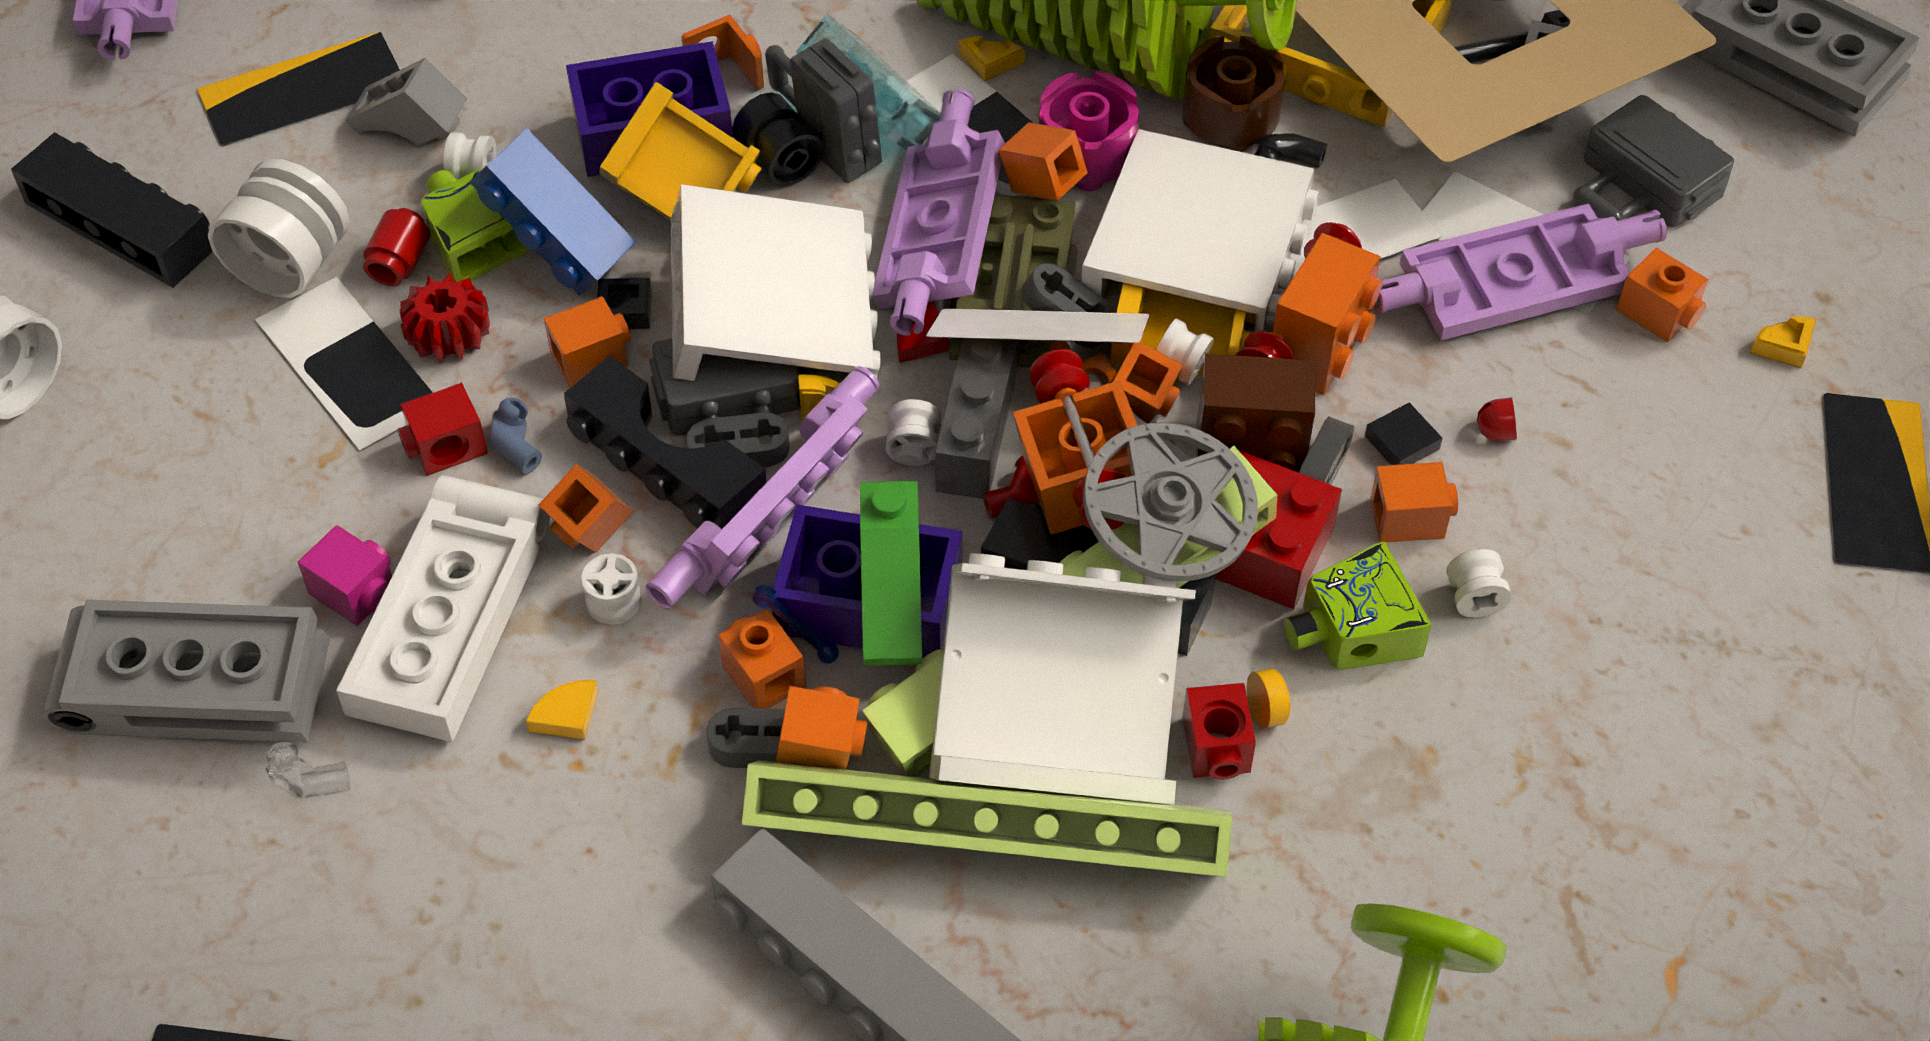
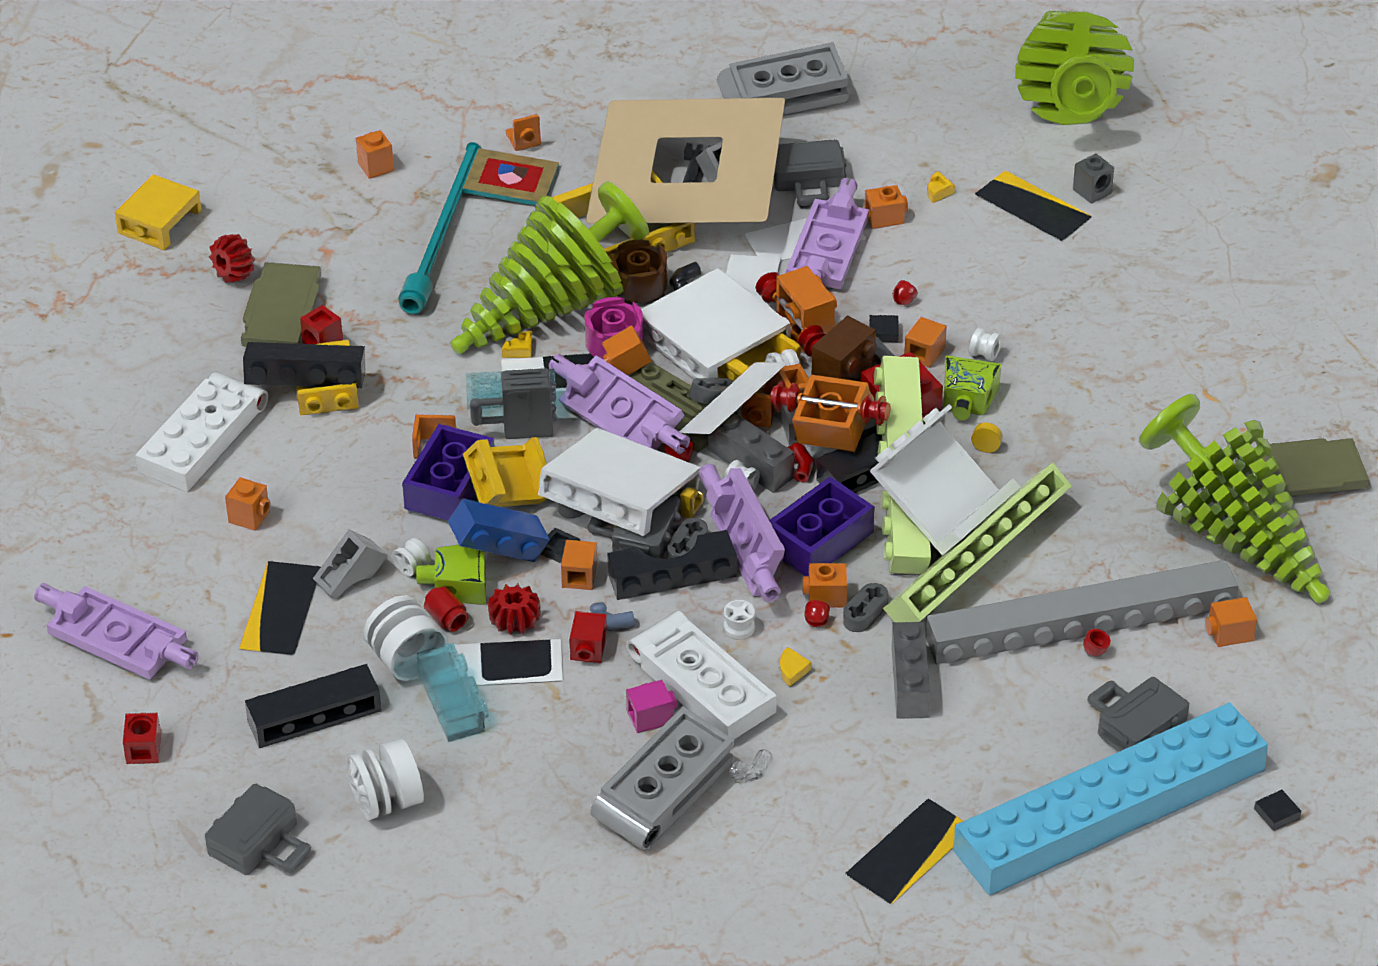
camera: 55 degrees left, 10 degrees down
(227, 336) = (452, 692): none -> clear light blue brick
(584, 510) = (693, 600): orange brick -> none
(641, 872) = (910, 670): none -> flat silver brick
(693, 682) = (816, 613): none -> red hinge
(766, 598) = (812, 554): clear blue hinge -> none
(785, 144) = (508, 435): black wheel -> none
(820, 728) = (889, 575): orange brick -> none
(890, 573) = (838, 500): bright green slope -> none
(1170, 501) = (901, 385): light grey wheel -> none
(1218, 711) = (994, 458): red brick -> none

